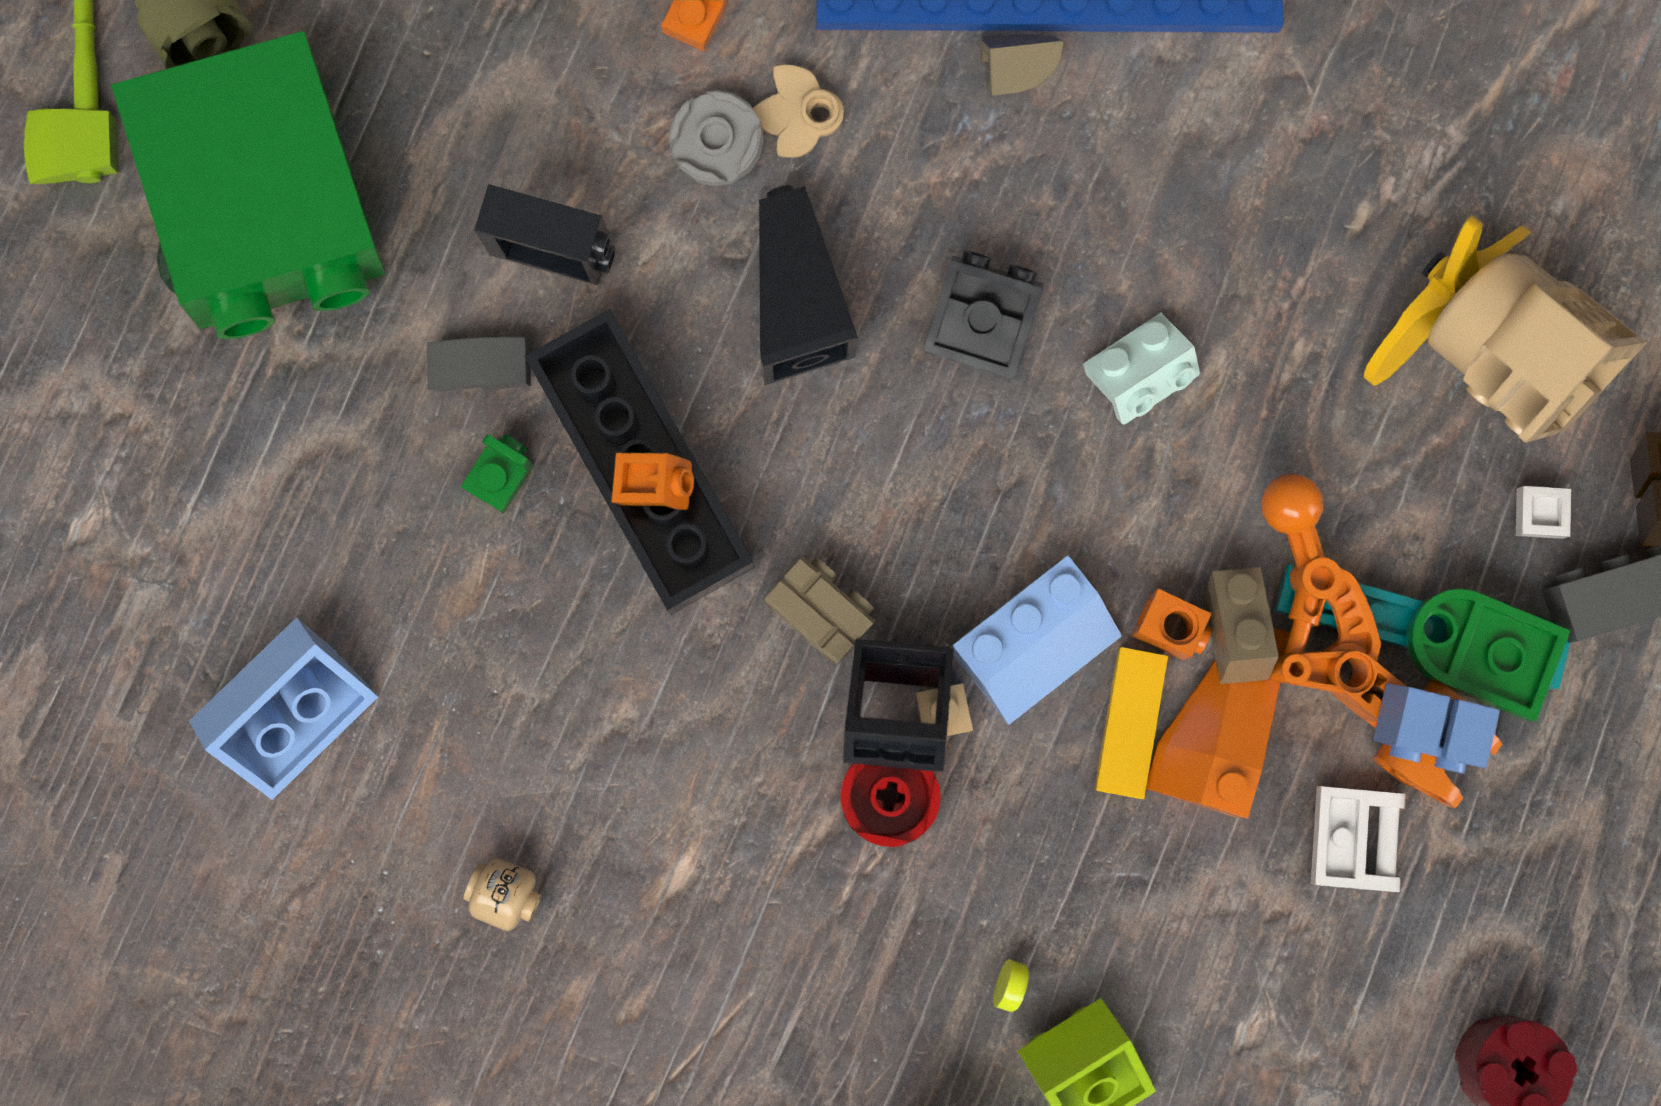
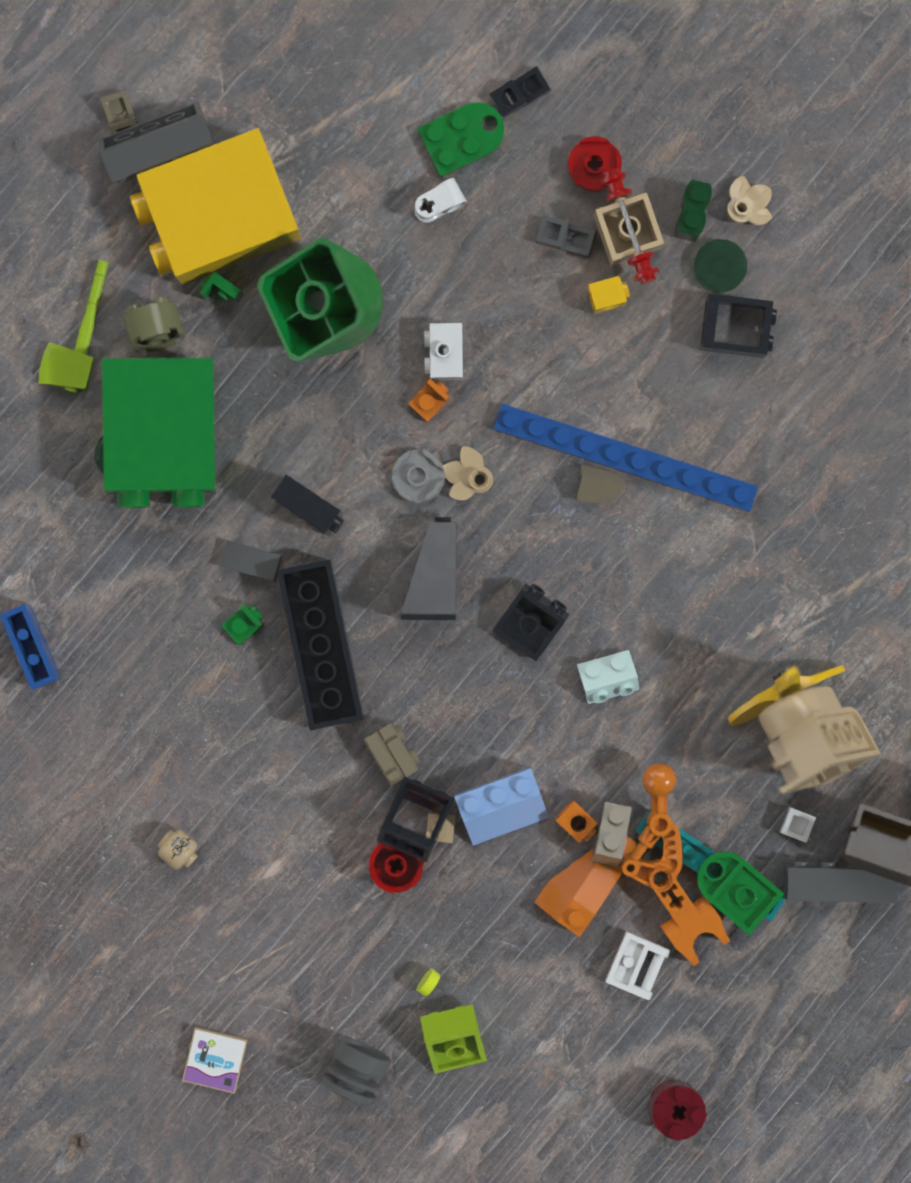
camera: 25 degrees right, 5 degrees up
(139, 623) = (30, 646): none -> blue brick
(282, 709) = (91, 714): light blue slope -> none
(652, 480) = (323, 661): orange bracket -> none
(1131, 723) = (538, 865): yellow tile -> none
(1436, 726) = (692, 922): medium blue piece -> none

